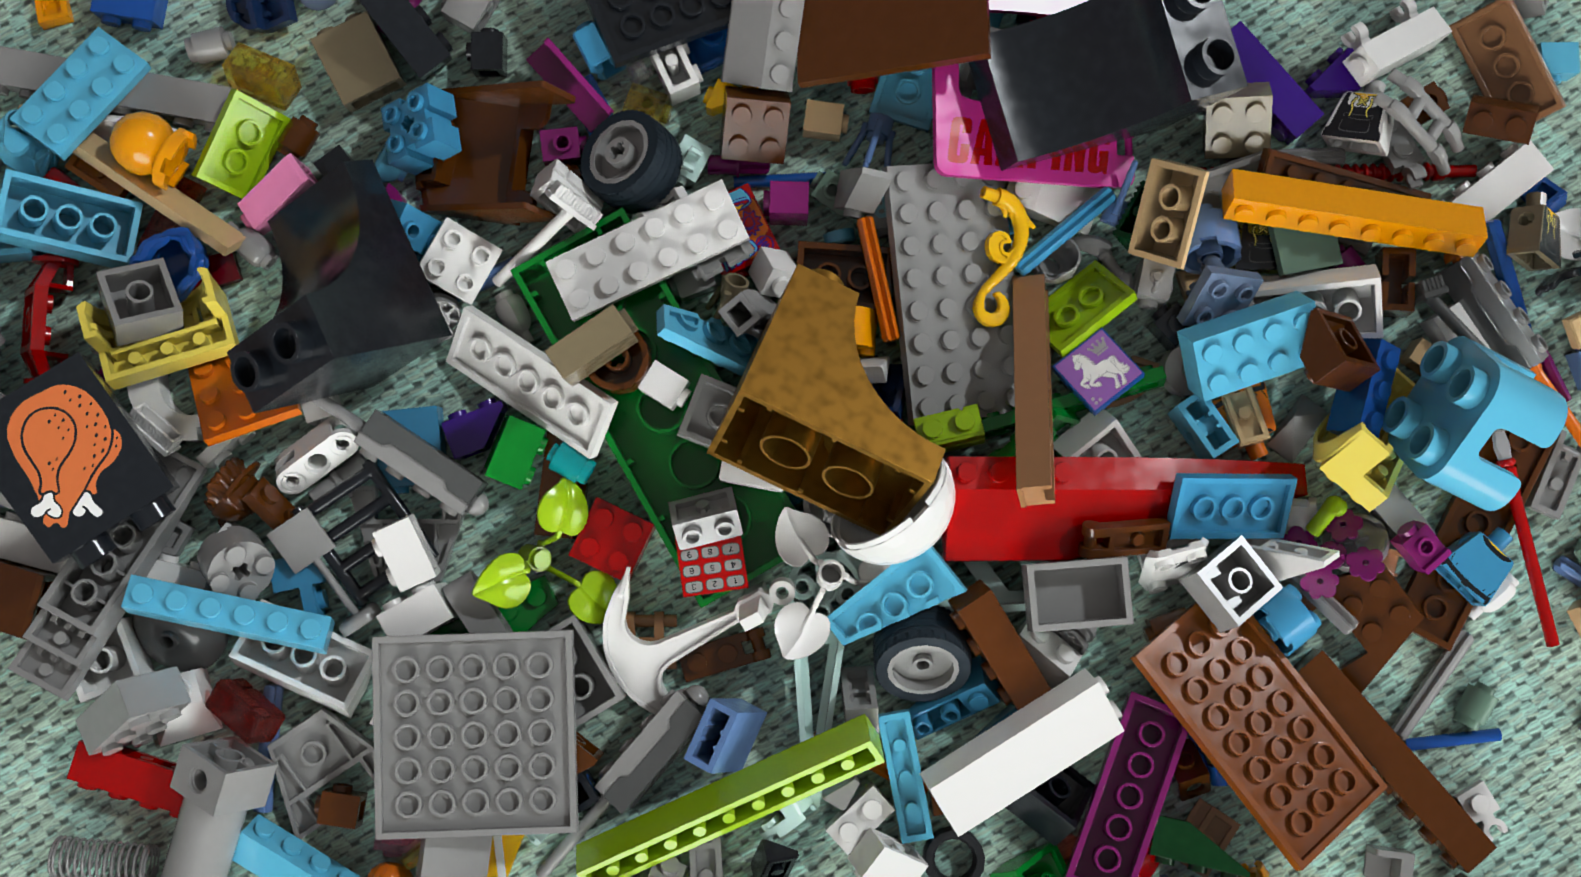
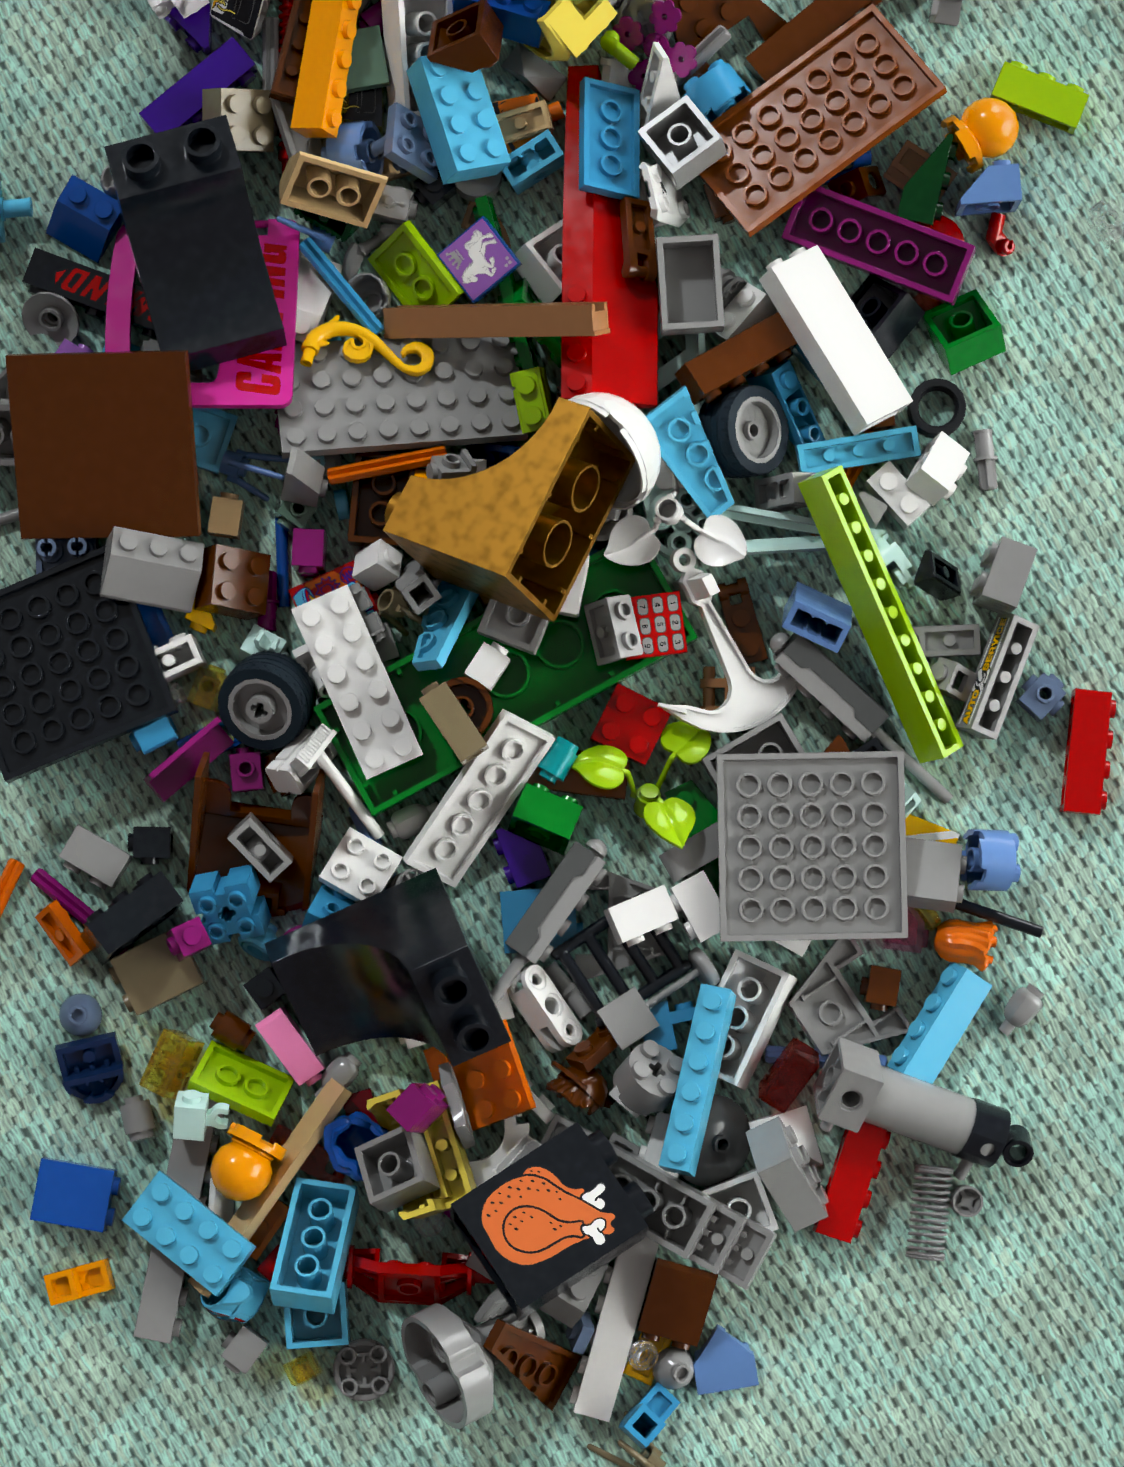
camera: 85 degrees left, 0 degrees up
(196, 319) = (418, 1107): none -> magenta brick
(199, 366) = (457, 1106): none -> light grey tile
(200, 94) = (193, 1115): none -> light aqua brick
(382, 84) = (188, 939): none -> magenta brick
(479, 158) = (260, 847): none -> light grey brick
(873, 344) = (451, 466): none -> light grey brick

